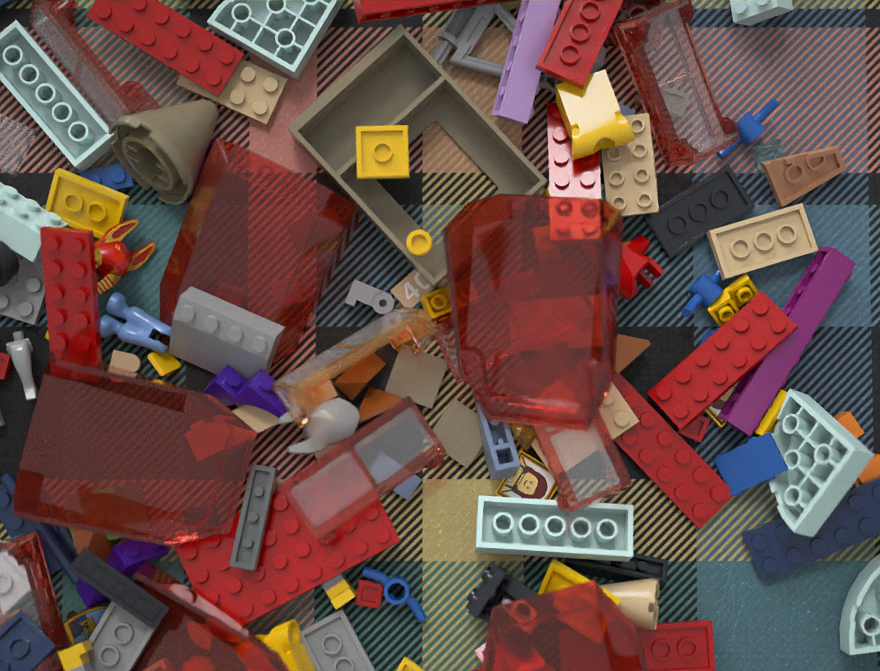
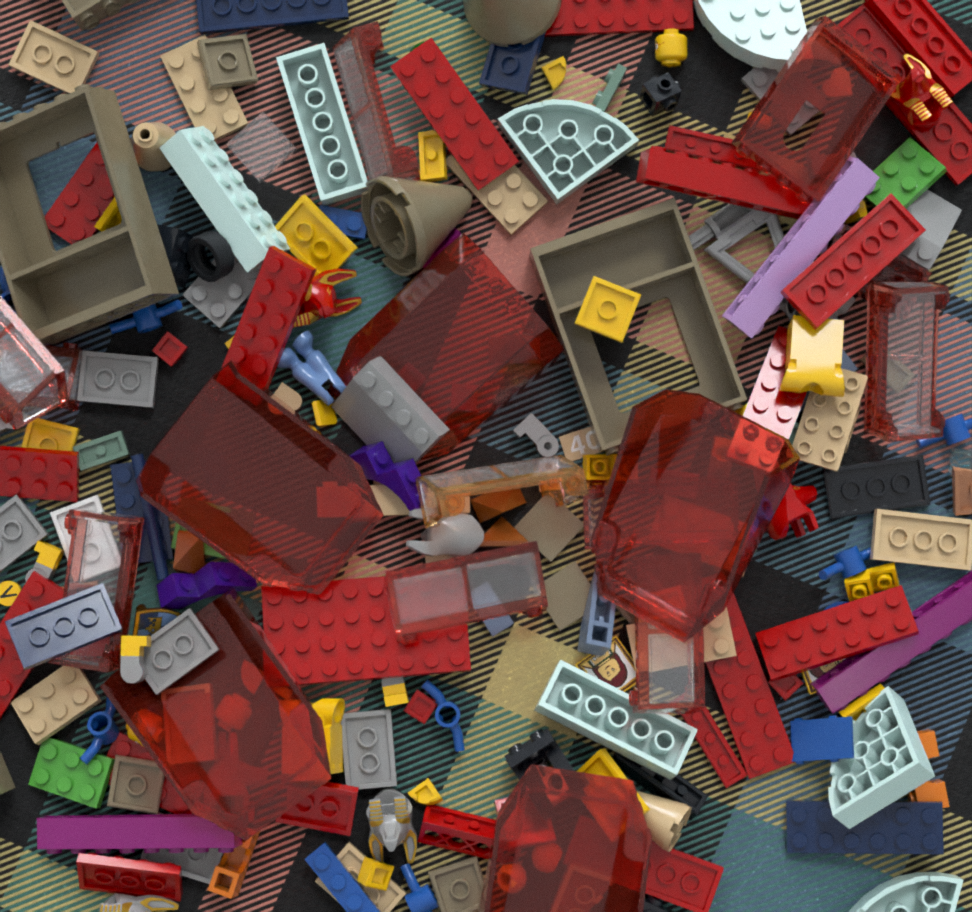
camera: 25 degrees right, 0 degrees up
(21, 356) = (198, 349): light grey animal -> none
(118, 588) = (200, 601): black plate -> none
(163, 84) = (432, 157): none -> yellow plate
(253, 517) = (346, 590): dark grey plate -> none
(419, 243) = (605, 406): yellow tile -> none
(523, 434) = (625, 621): clear yellow slope -> none
(626, 350) = (752, 585): dark orange slope -> none
(656, 513) = (715, 747): none -> red tile

